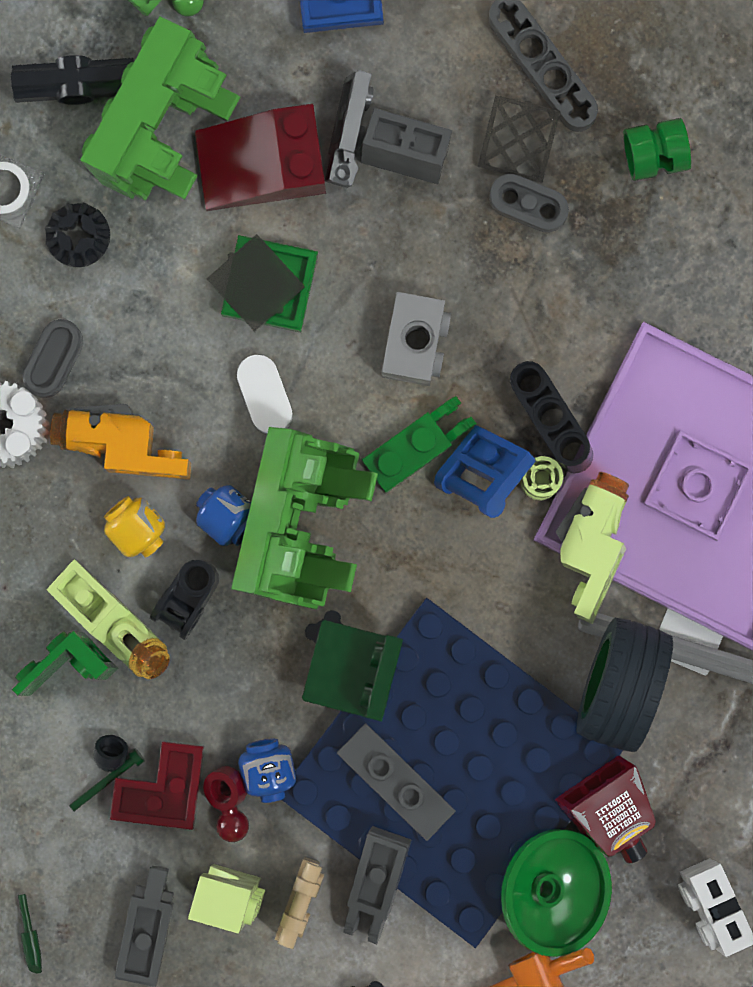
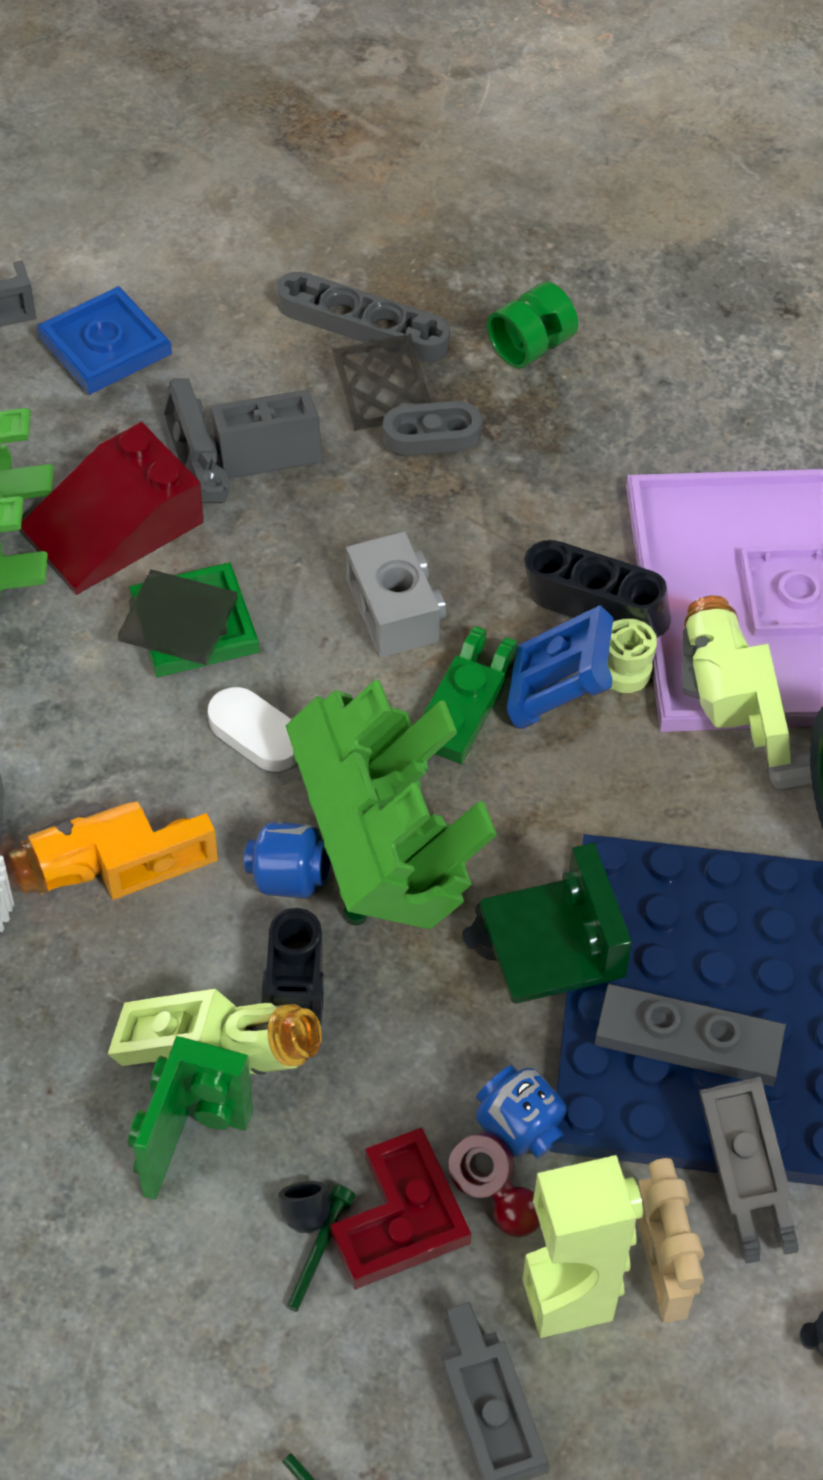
camera: 35 degrees left, 30 degrees down
(134, 527) = (181, 927): yellow head -> none

